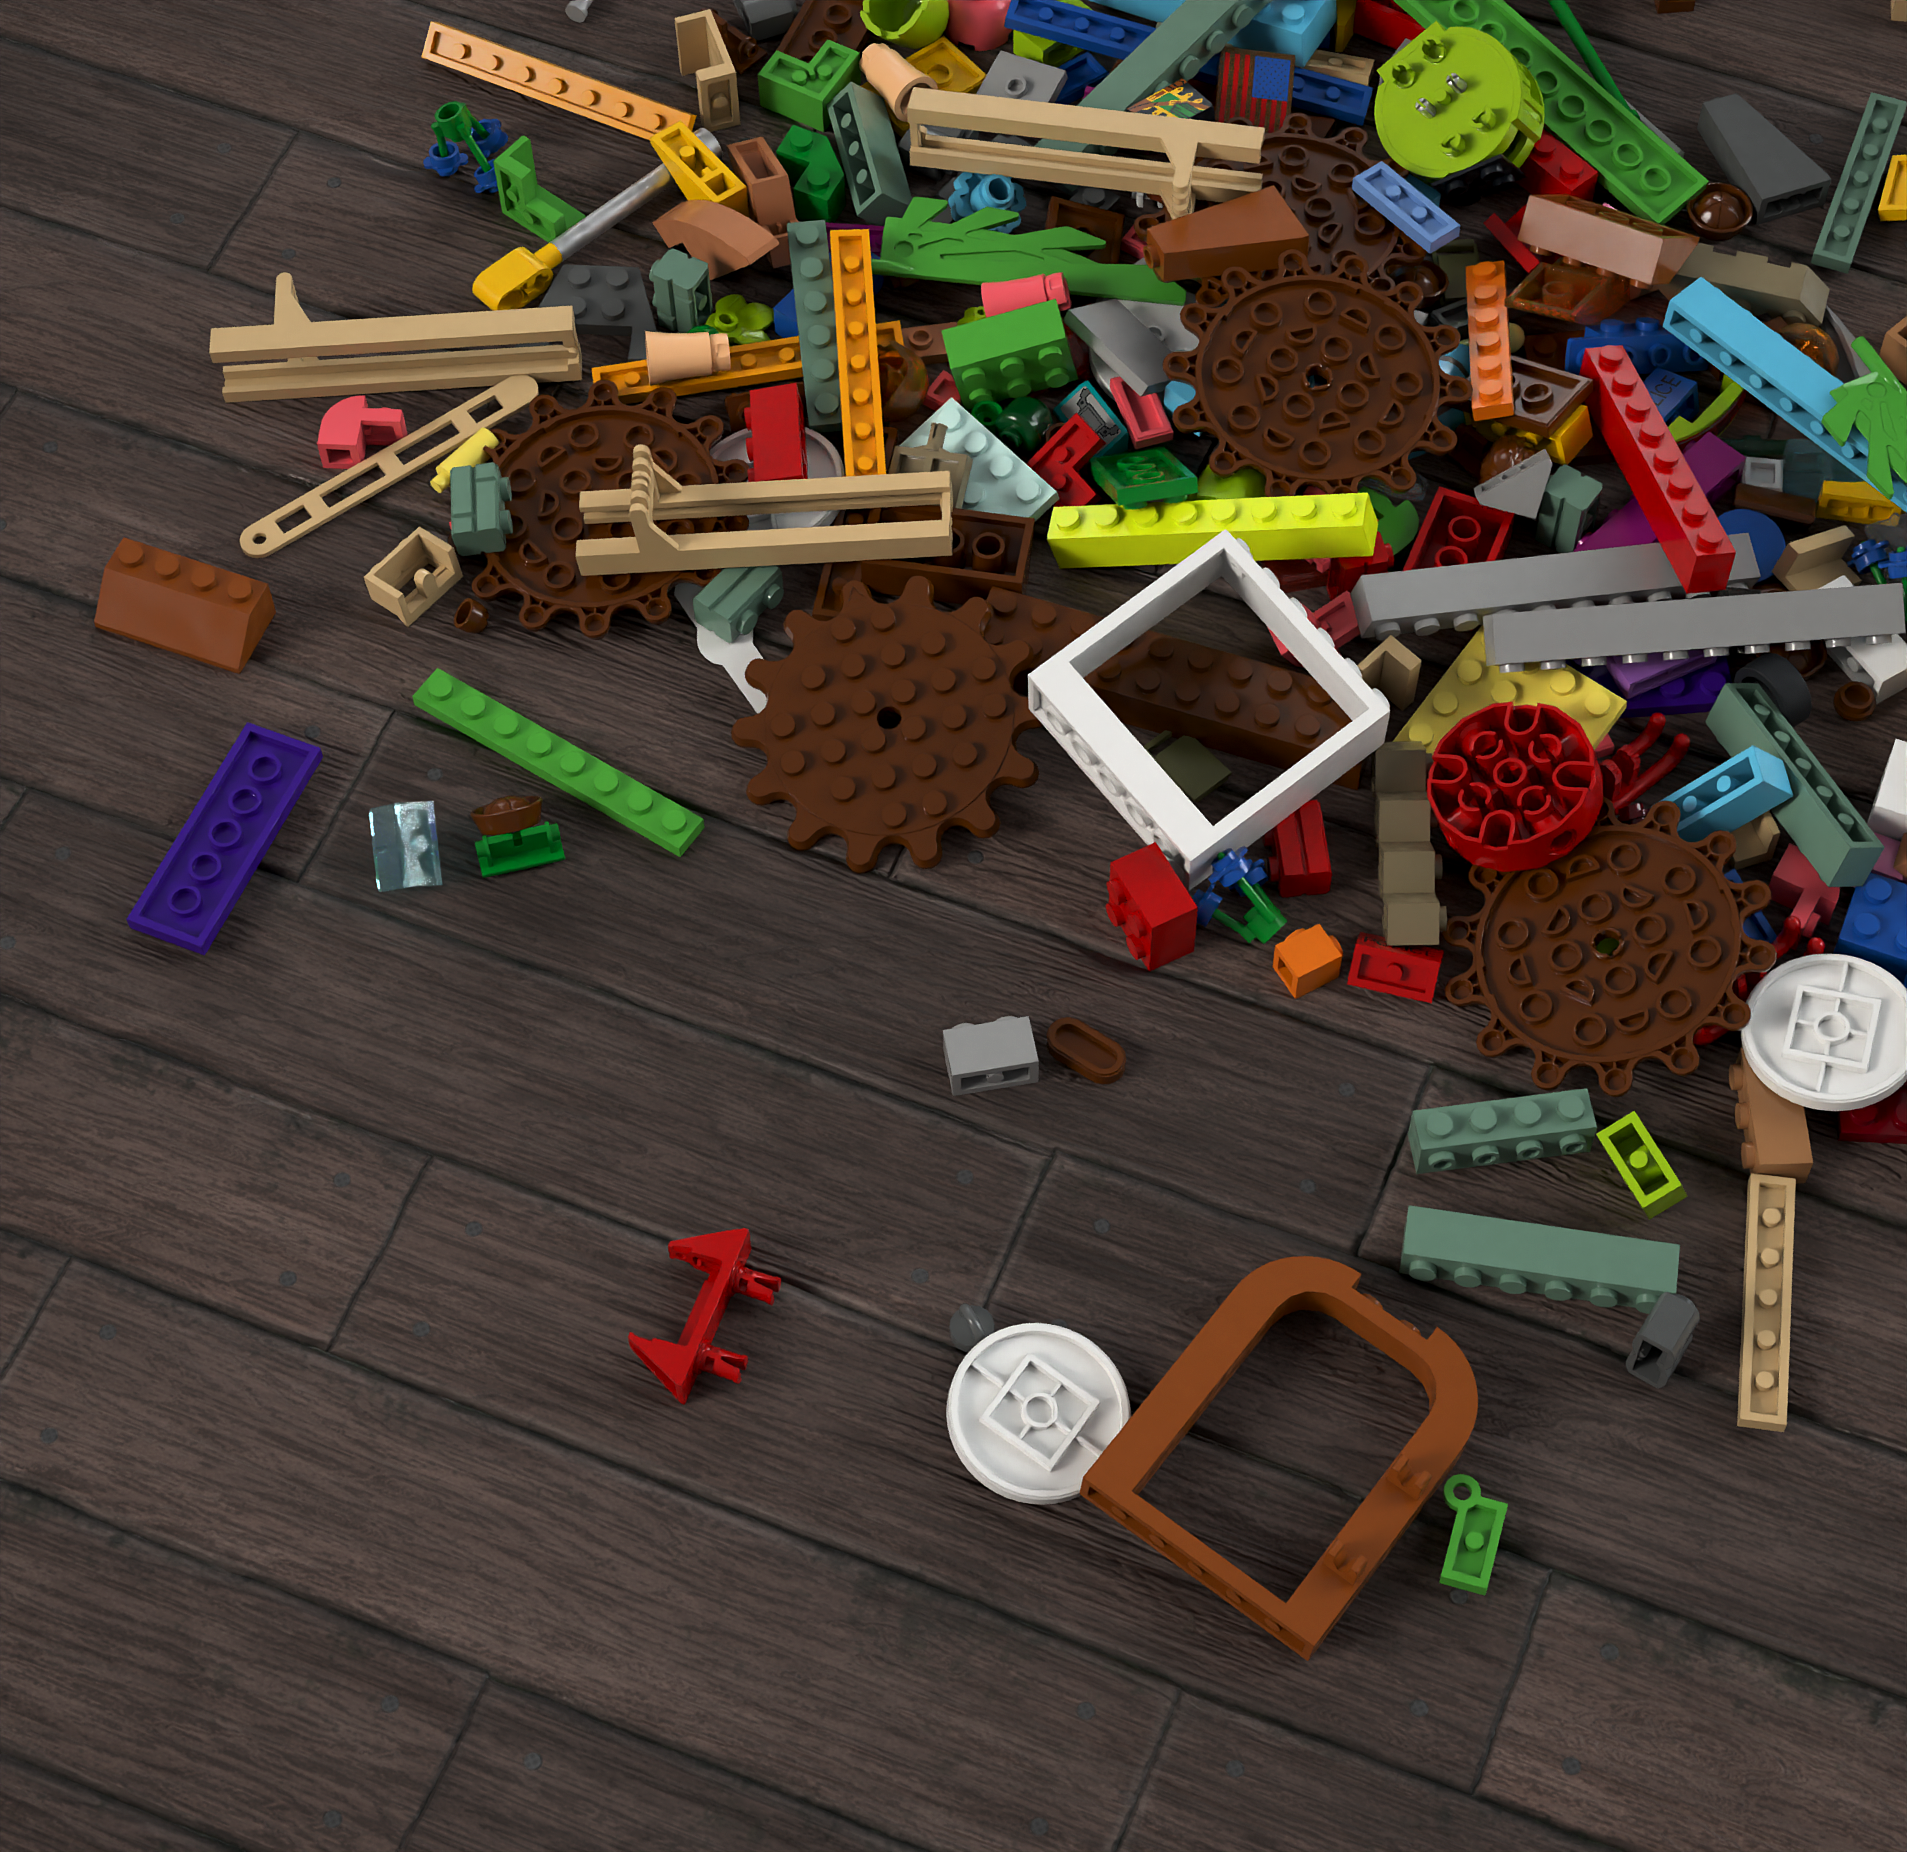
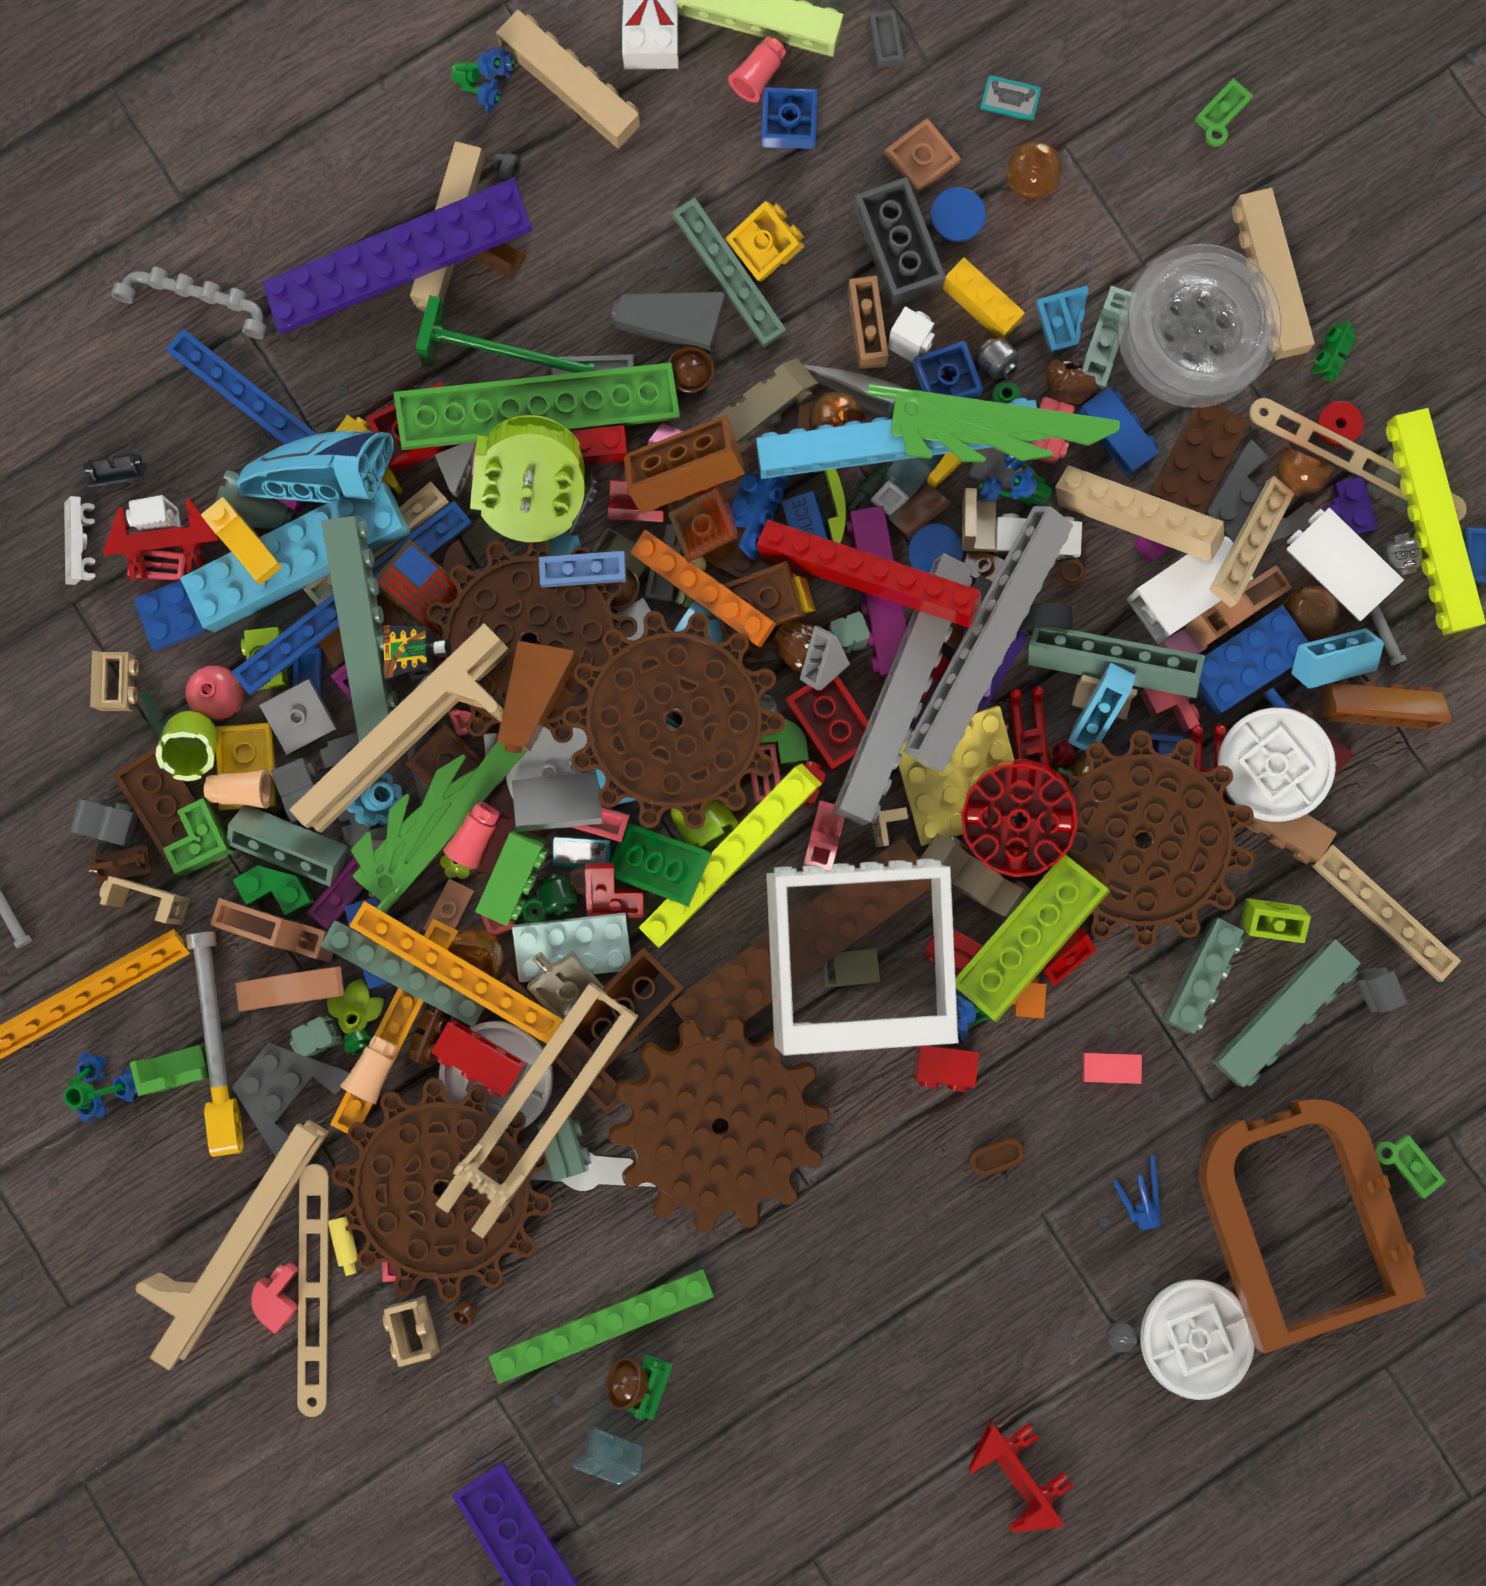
camera: 55 degrees left, 25 degrees up
(183, 605) = (336, 1483): dark orange slope -> none
(479, 509) = (398, 1267): sand green brick -> none
(698, 169) = (227, 961): yellow slope -> none
(990, 1055) = (968, 1215): light grey brick -> none
(1150, 1254) = (1146, 1212): none -> blue plant
(1301, 1111) = (1112, 1068): none -> coral tile
(1382, 885) = (1030, 937): none -> lime plate

